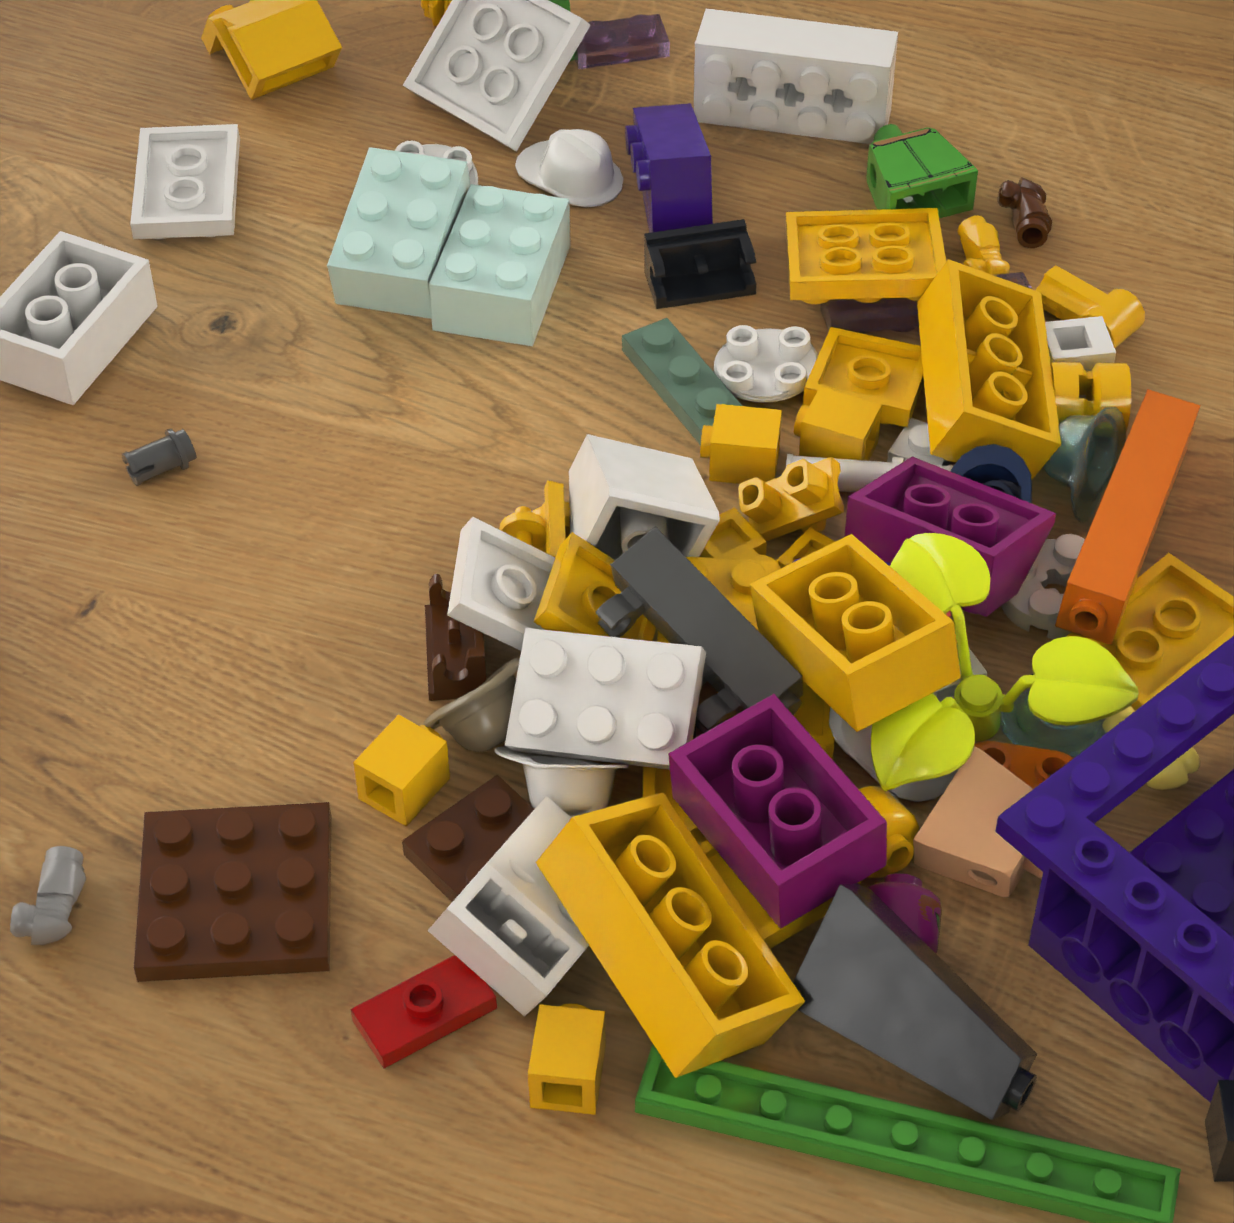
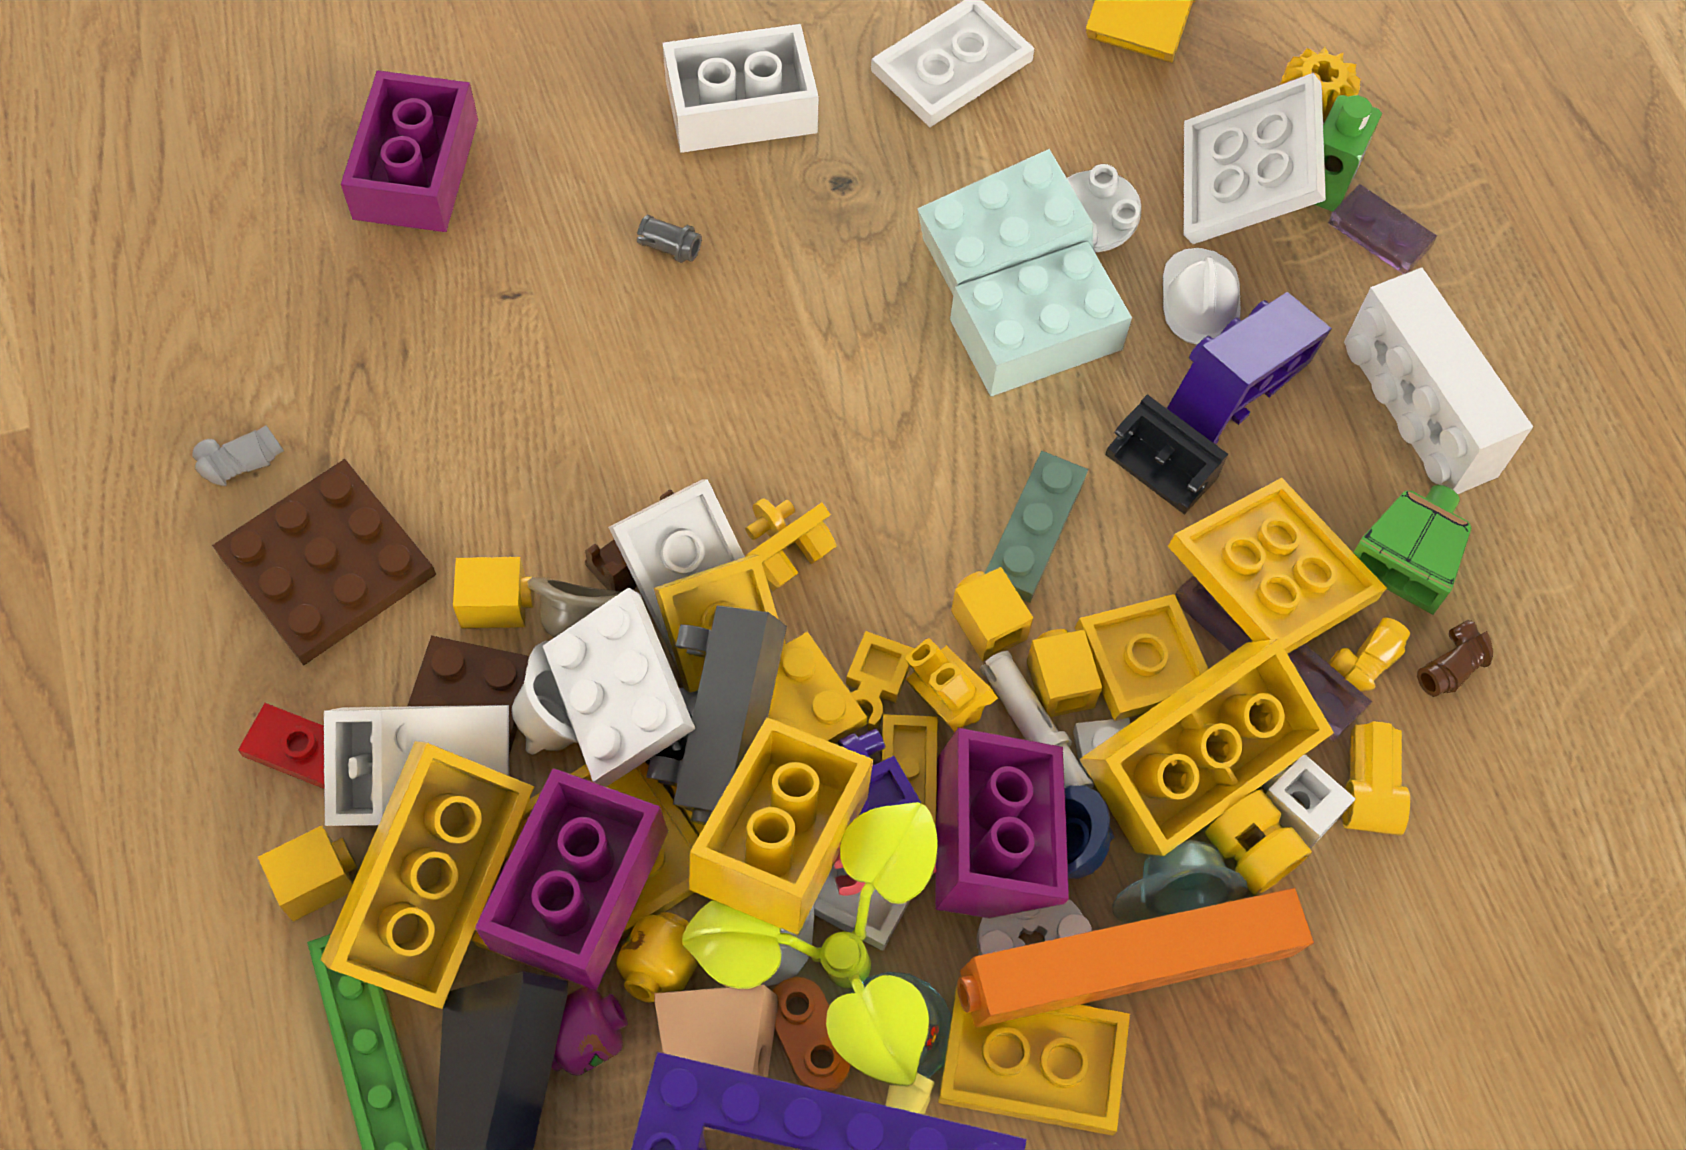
camera: 50 degrees right, 15 degrees up
(629, 489) = (845, 579): white slope -> none
(765, 362) = (1099, 570): white dish -> none

